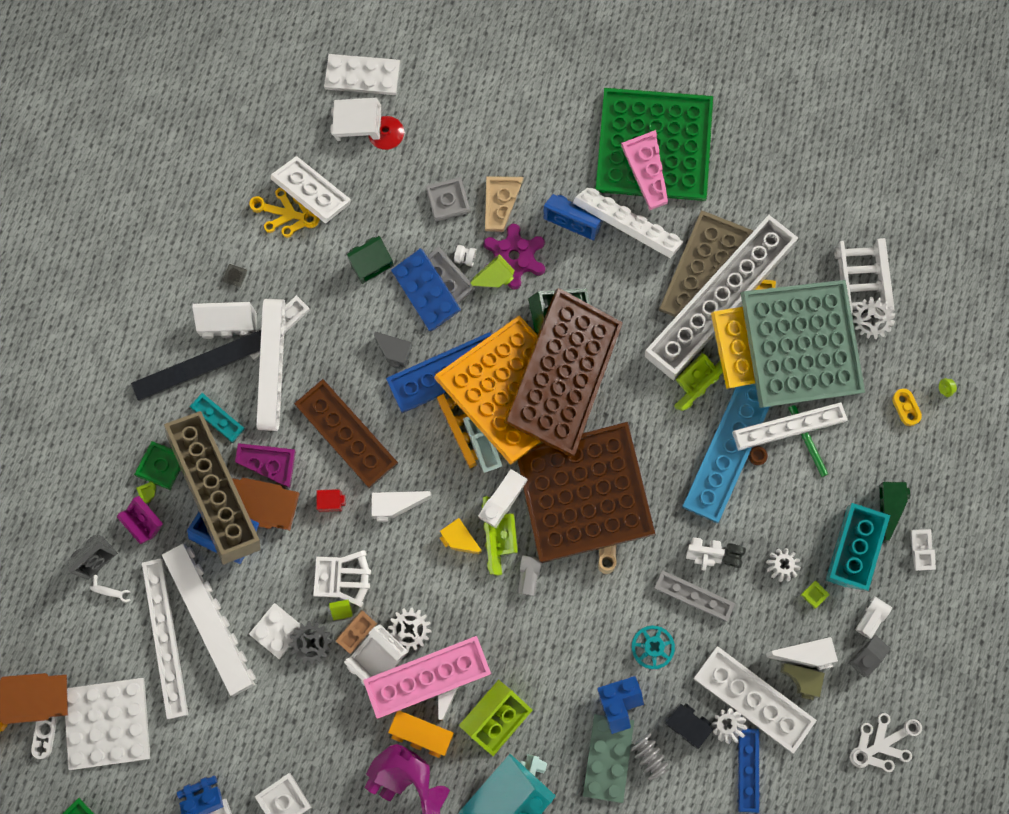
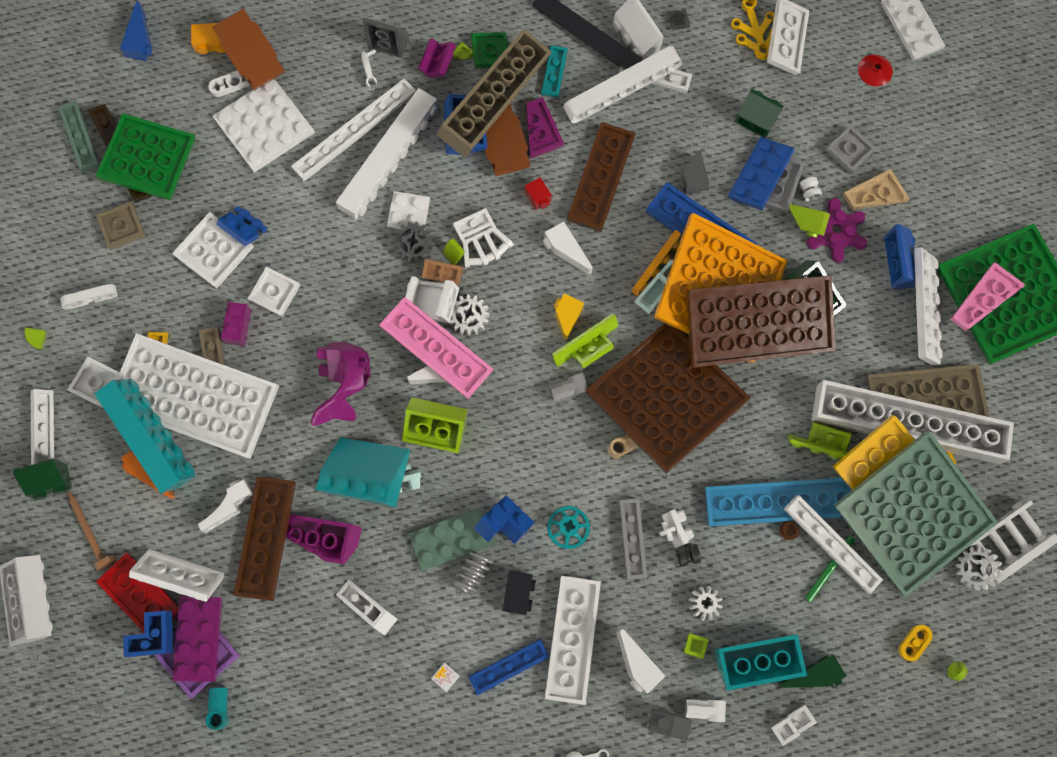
camera: 50 degrees right, 0 degrees up
(356, 118) = (872, 38): white panel -> none
(420, 734) = (387, 370): light orange brick -> none
(502, 498) = (621, 330): white slope -> none
(735, 720) = (529, 628): white gear -> none
(807, 681) = (615, 678): olive arch -> none

